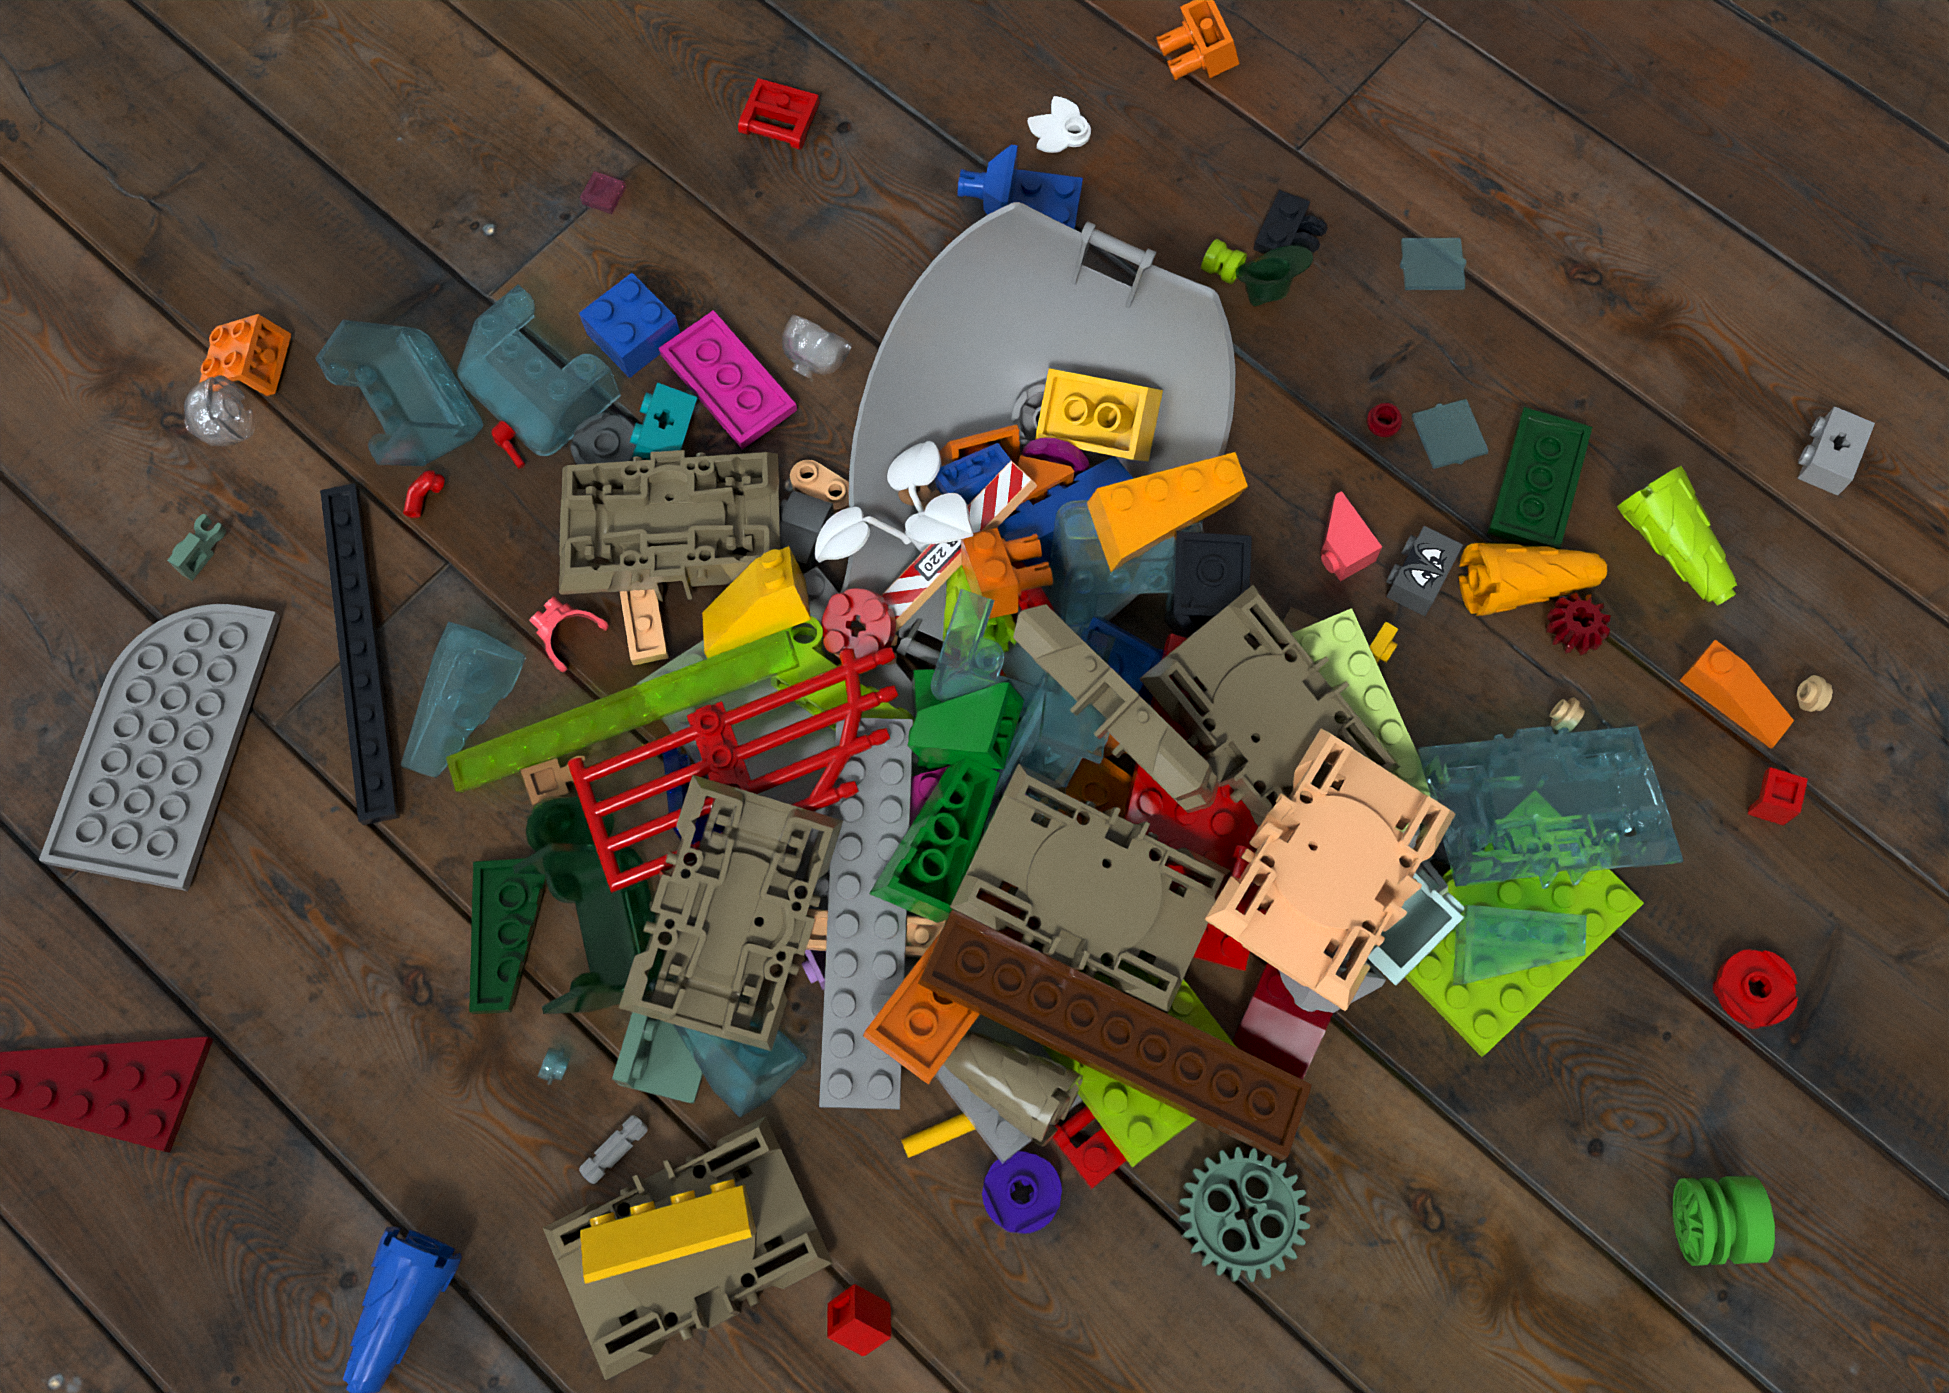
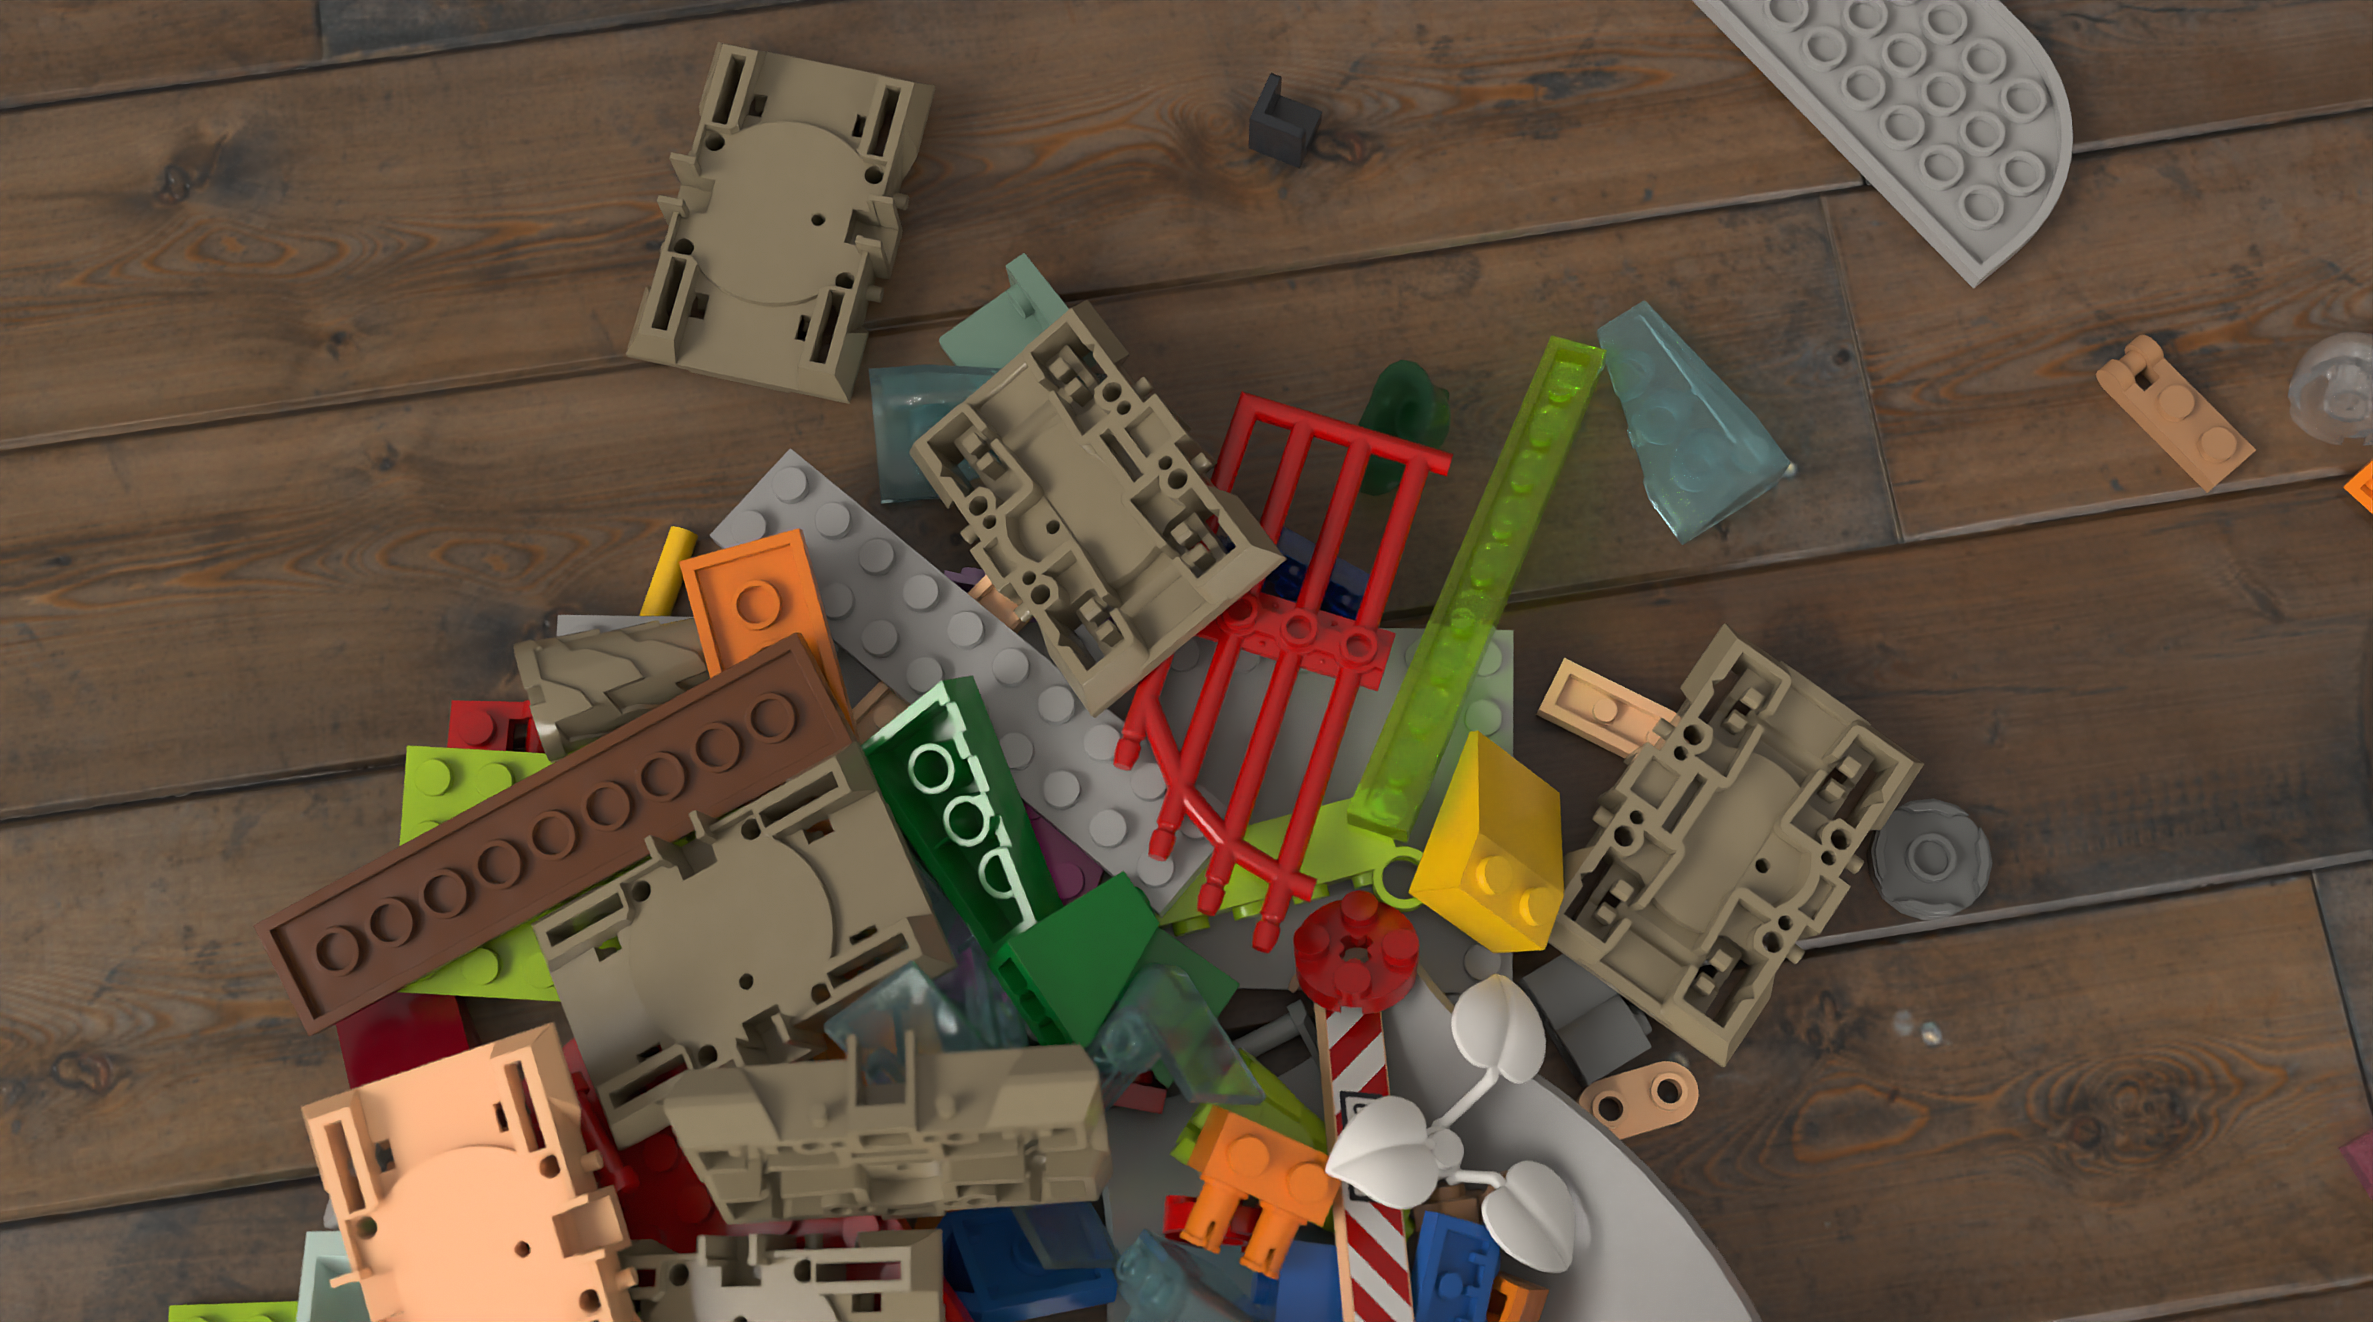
camera: 130 degrees right, 5 degrees up
(195, 550) = (2149, 239): sand green plate -> none
(287, 485) = (2174, 413): none -> medium nougat plate
(359, 655) = (1852, 350): black plate -> none
(405, 387) = (2211, 652): clear light blue windscreen -> none
(418, 489) = (2041, 571): red arm -> none
(428, 1019) = (1281, 125): none -> black panel
(501, 932) = (1336, 281): dark green wing -> none
(502, 434) = (2048, 730): red hand -> none
(524, 384) = (2107, 800): clear light blue windscreen -> none
(547, 780) = (1476, 446): medium nougat plate -> none
(553, 1065) = (1112, 221): clear light blue plate -> none
(554, 614) = (1707, 611): coral helmet -> none
(608, 921) = (1207, 381): clear green windscreen -> none
(613, 1149) = (961, 222): light grey axle -> none
(629, 324) = (2104, 1023): blue brick -> none
(664, 406) = (1900, 983): teal brick -> none
(666, 1232) = (788, 181): yellow slope -> none
(728, 379) = (1911, 1098): dark pink plate -> none
(813, 348) = (1866, 1253): clear cylinder -> none
(859, 1320) = (546, 340): red panel -> none
(1044, 1200) = (503, 592): dark purple plate -> none
(1278, 1202) = (289, 797): sand green gear -> none

